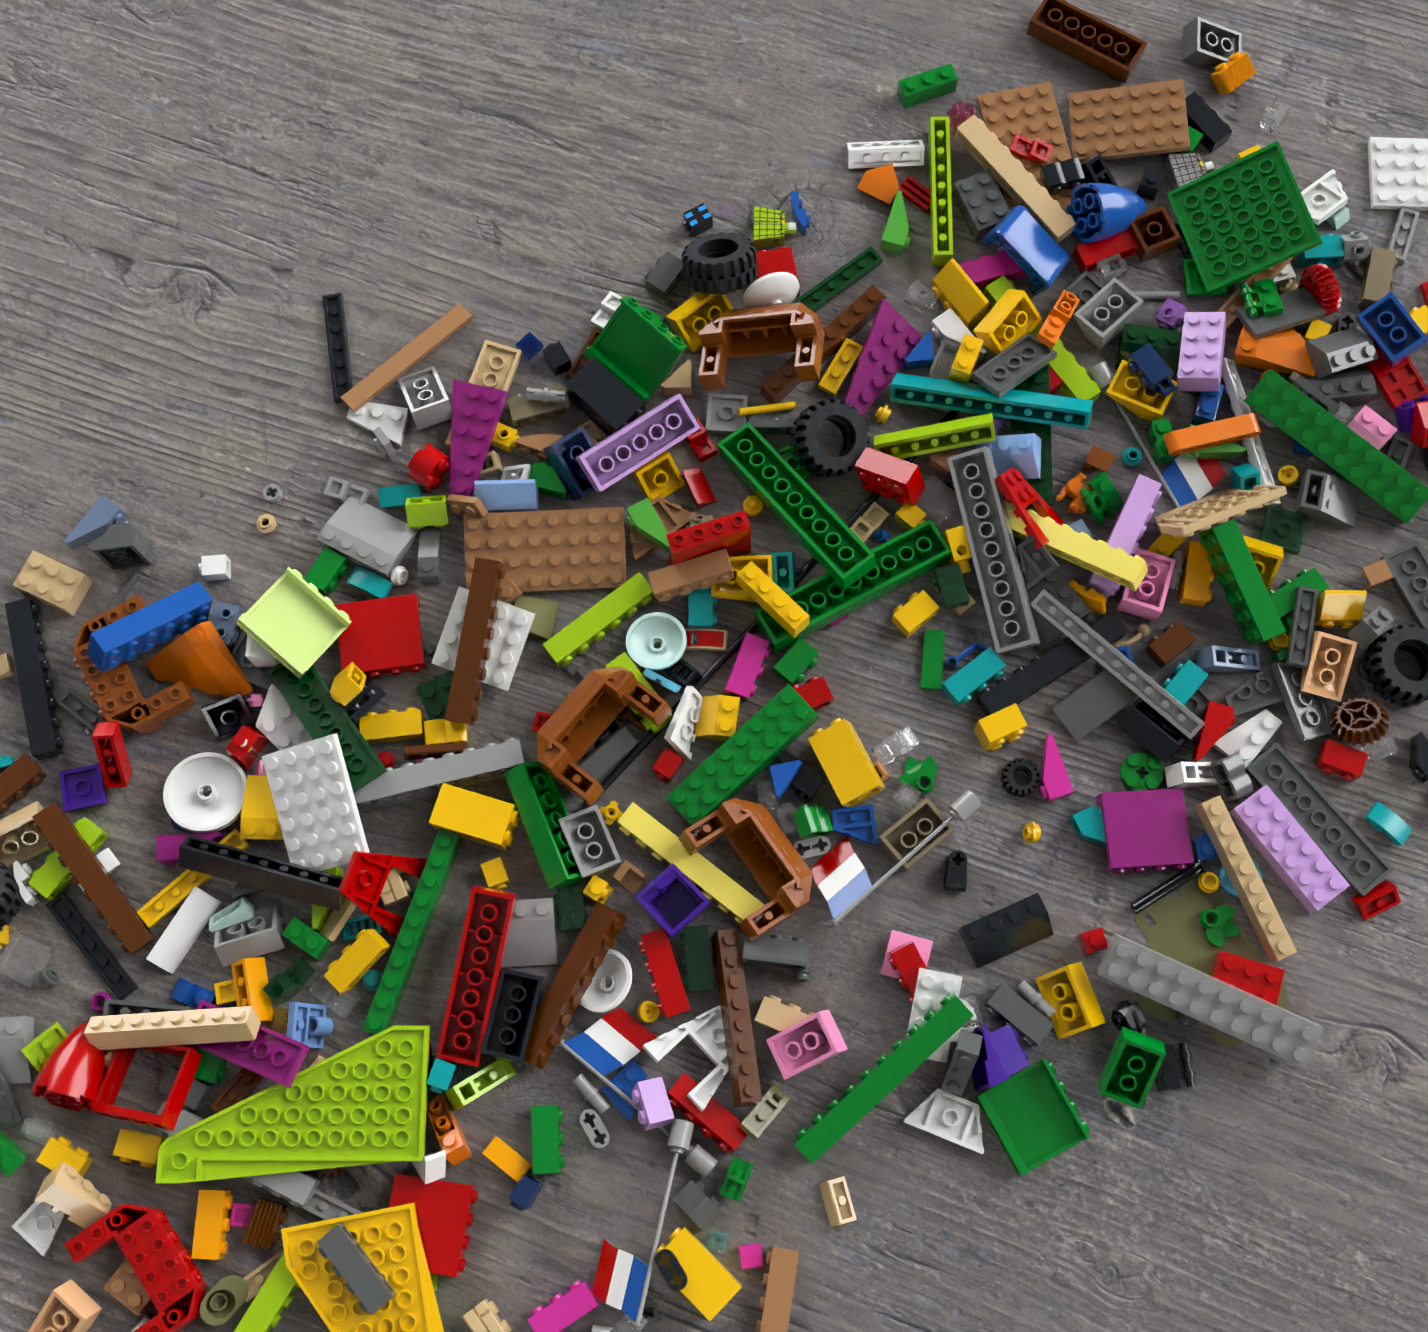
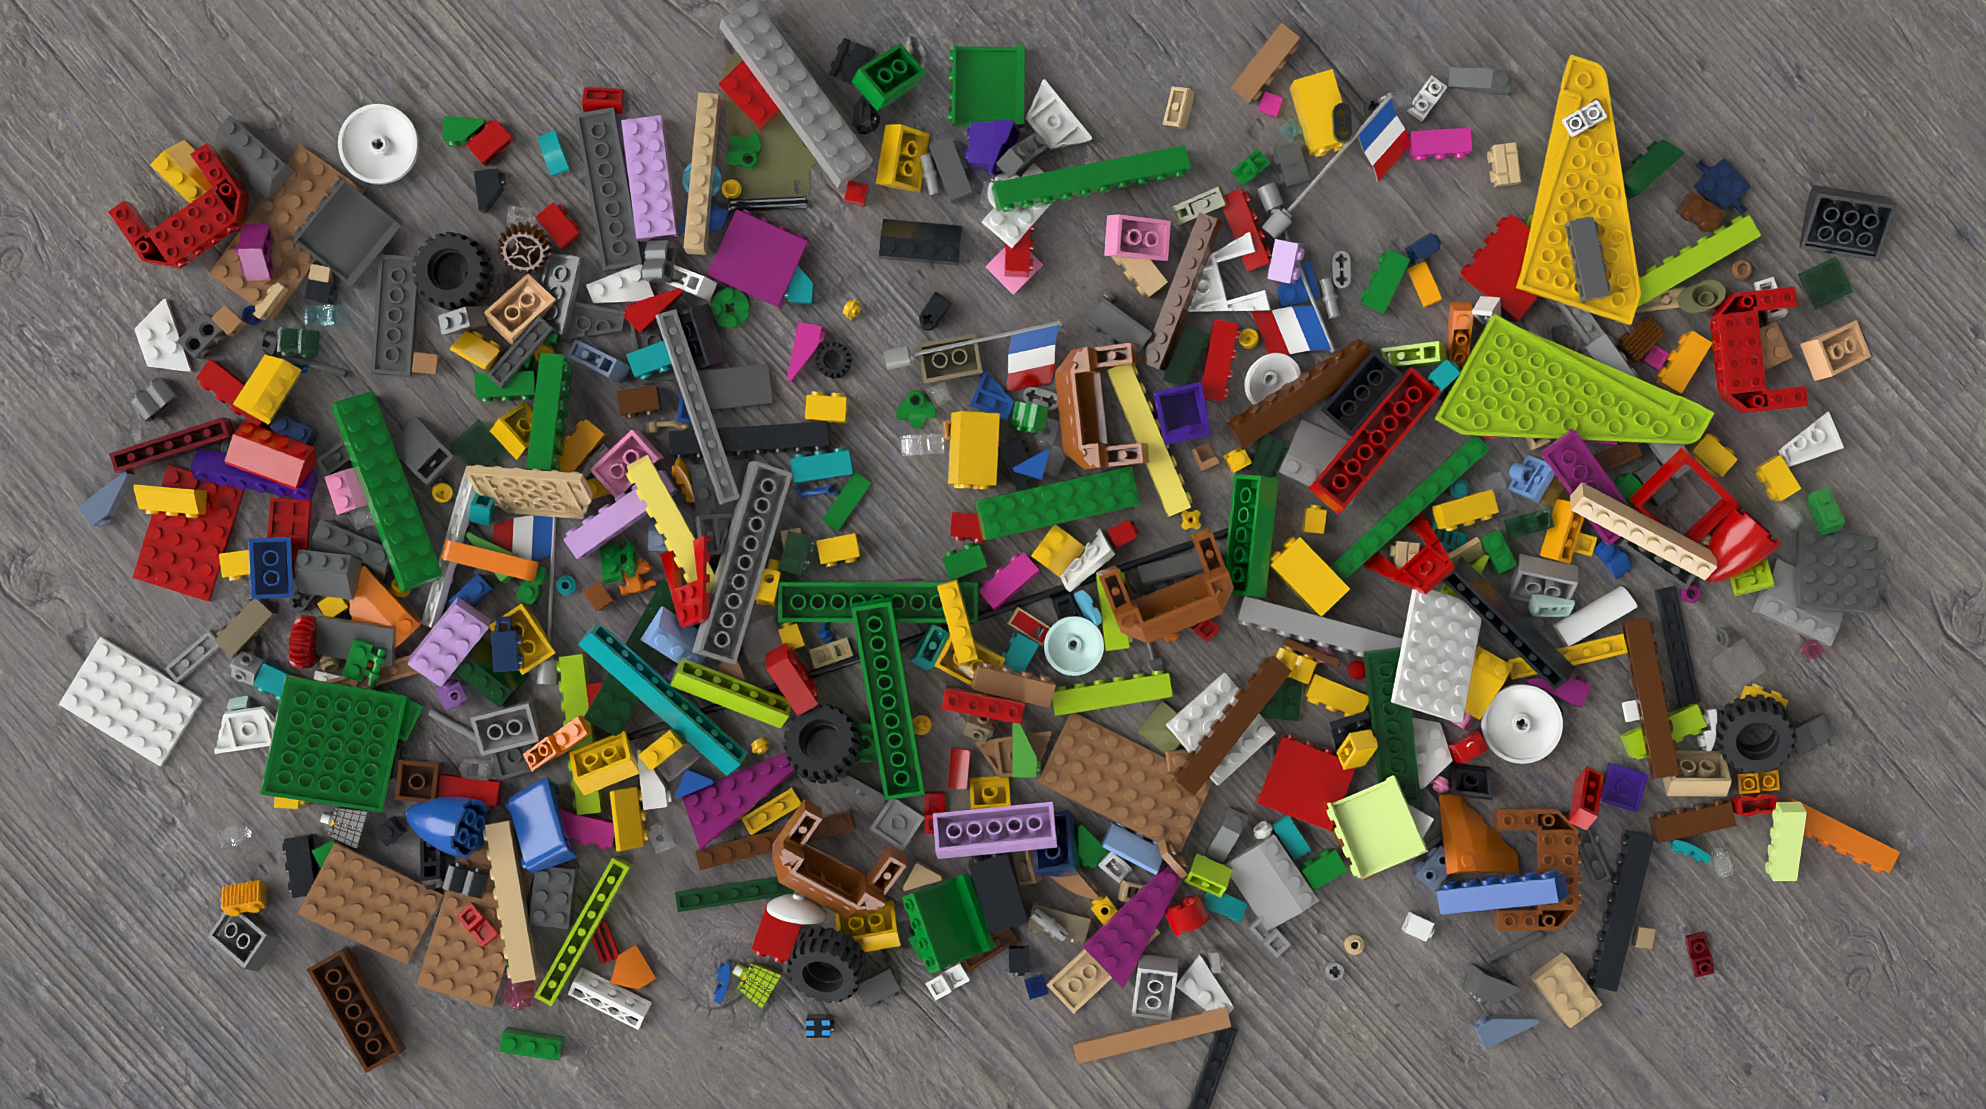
camera: 155 degrees left, 15 degrees up
(73, 1195) = (1783, 441): tan wedge -> none
(590, 842) = (1223, 501): light grey slope -> none
(766, 408) = (859, 807): yellow bar -> none
(897, 229) = (644, 915): bright green slope -> none
(1013, 365) = (625, 718): dark grey tile -> none
(1314, 393) = (378, 547): dark grey plate -> none

